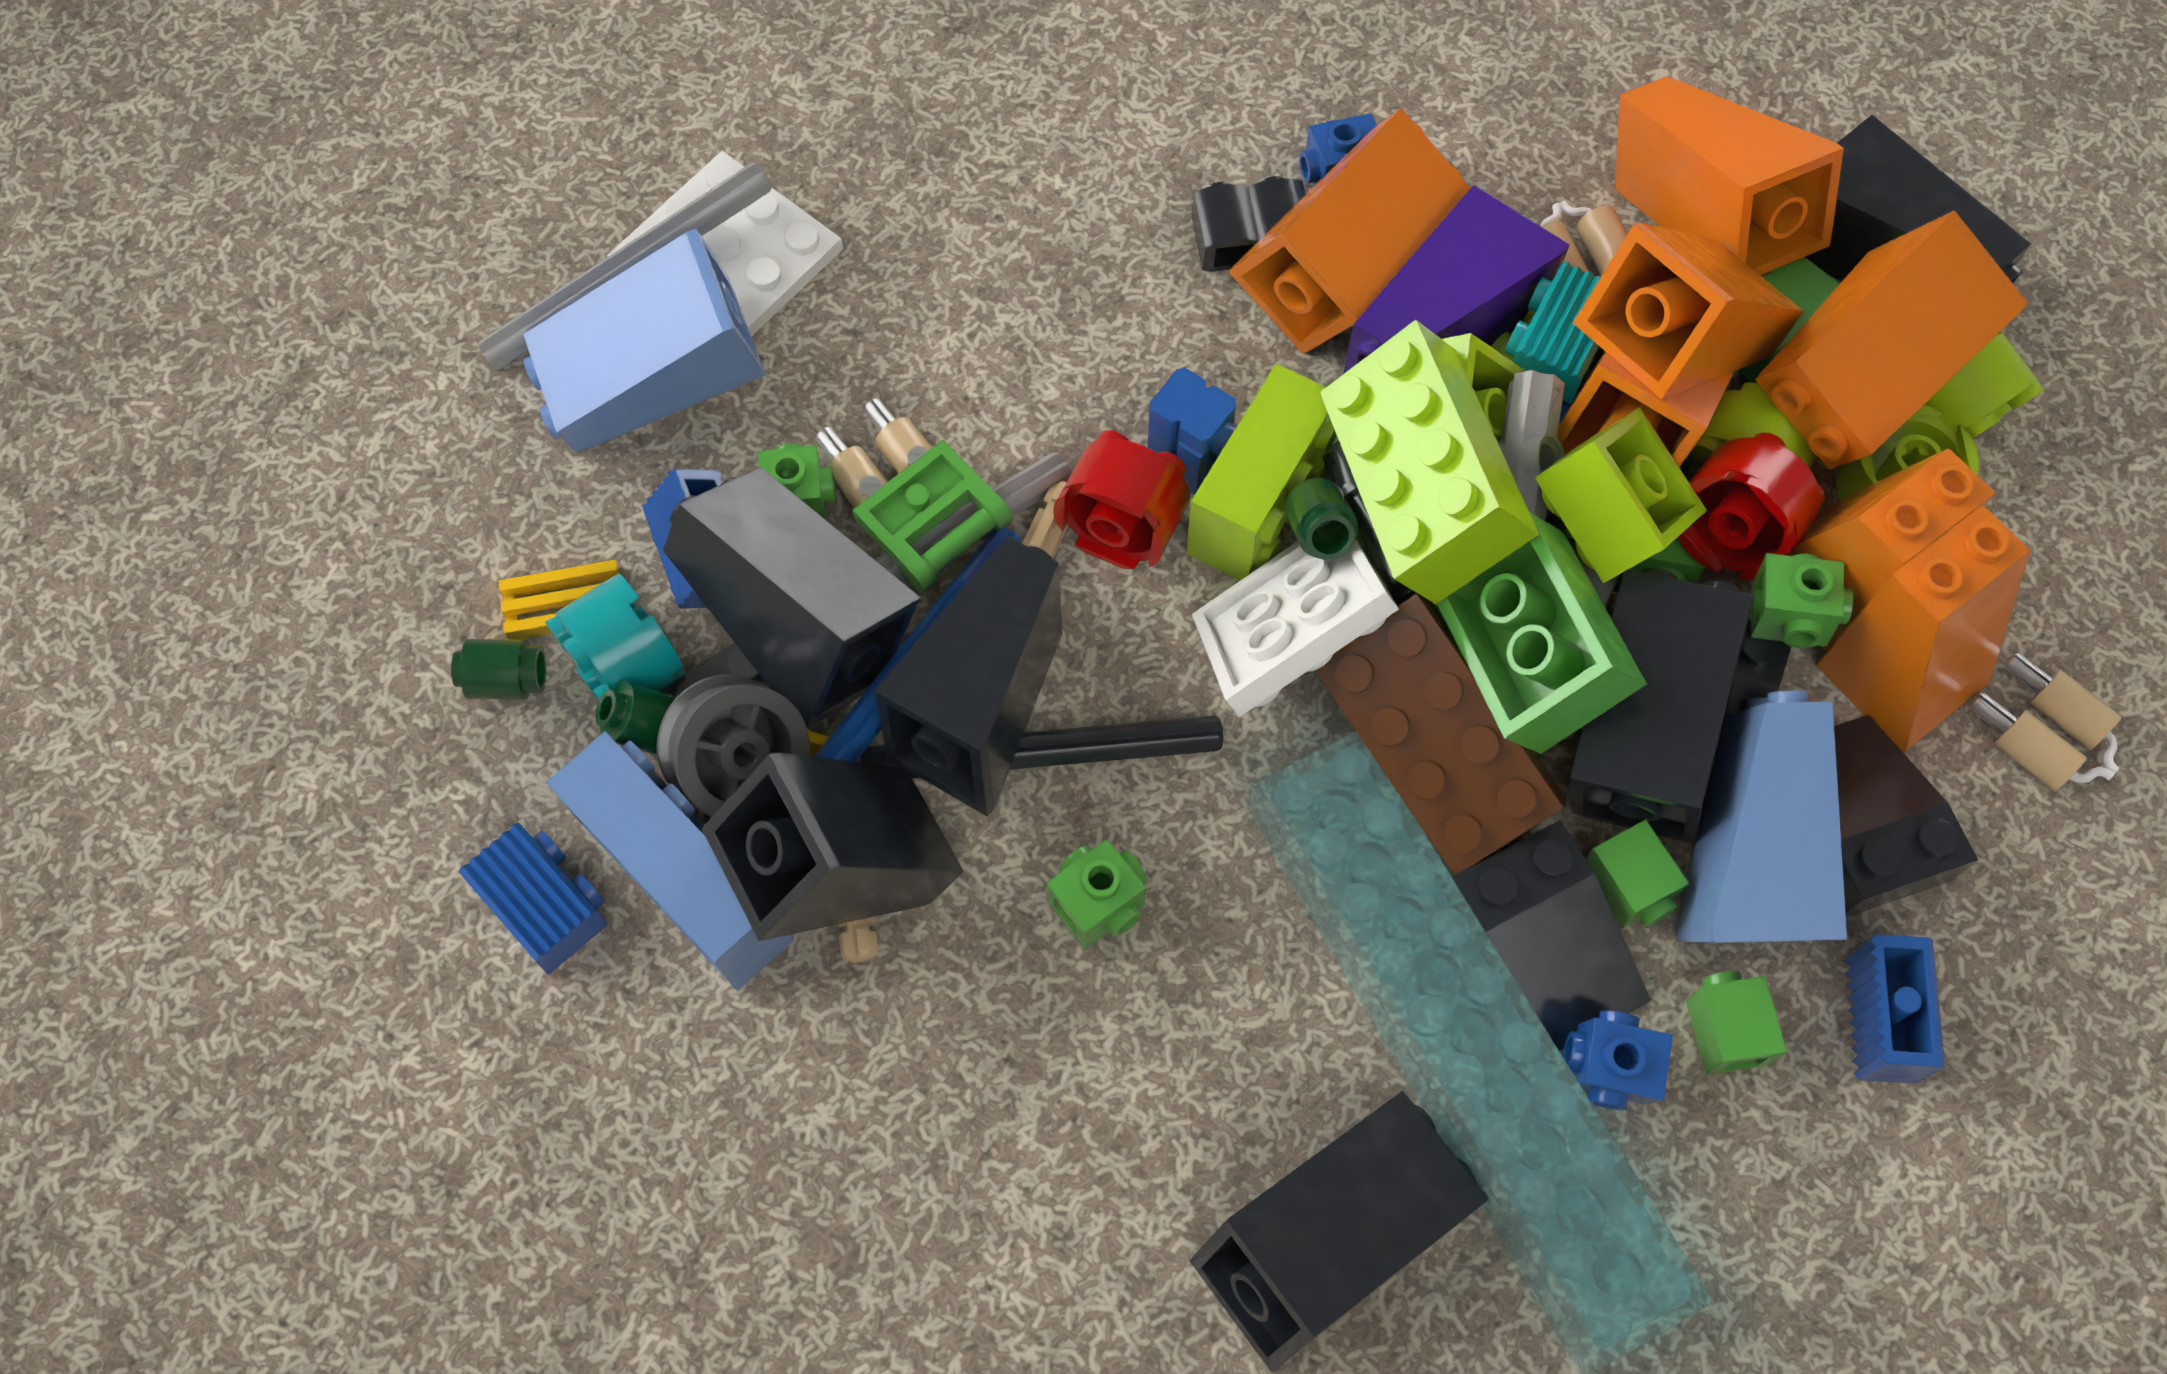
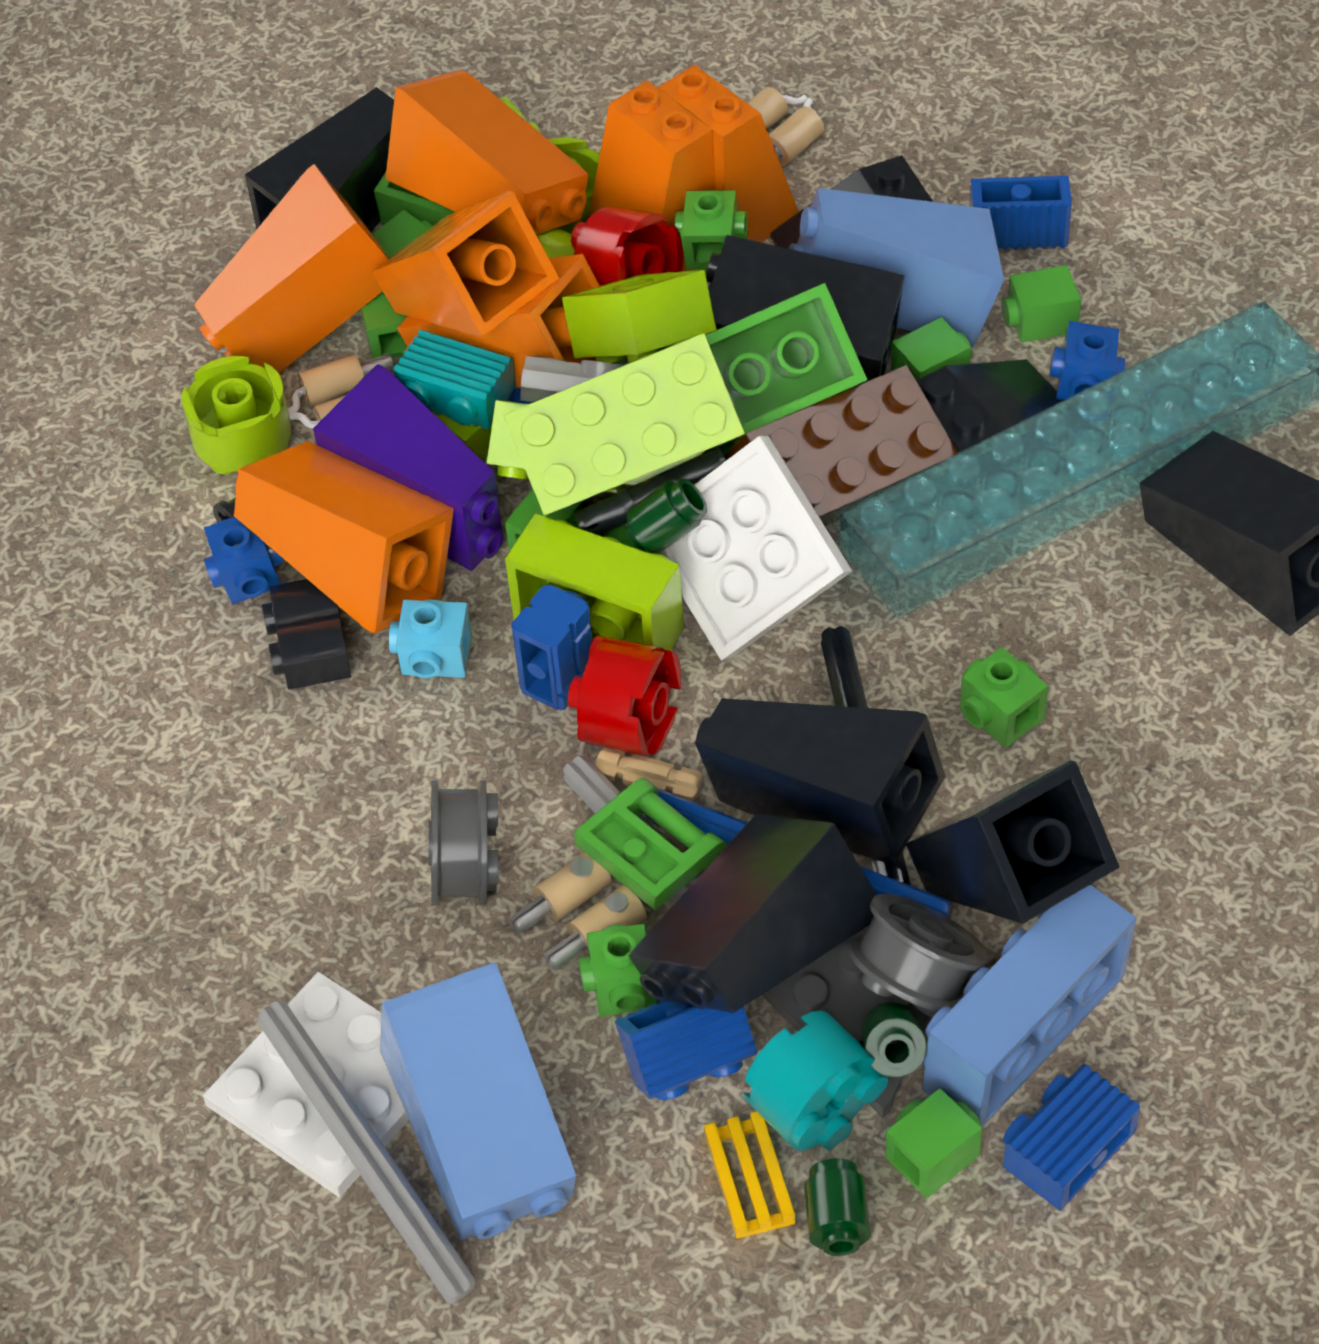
camera: 90 degrees left, 15 degrees down
(540, 752) = (933, 1141): none -> bright green brick
(947, 339) = (459, 842): none -> dark grey wheel
(1225, 329) = (432, 638): none -> medium azure brick
(1545, 147) = (236, 413): none -> lime brick

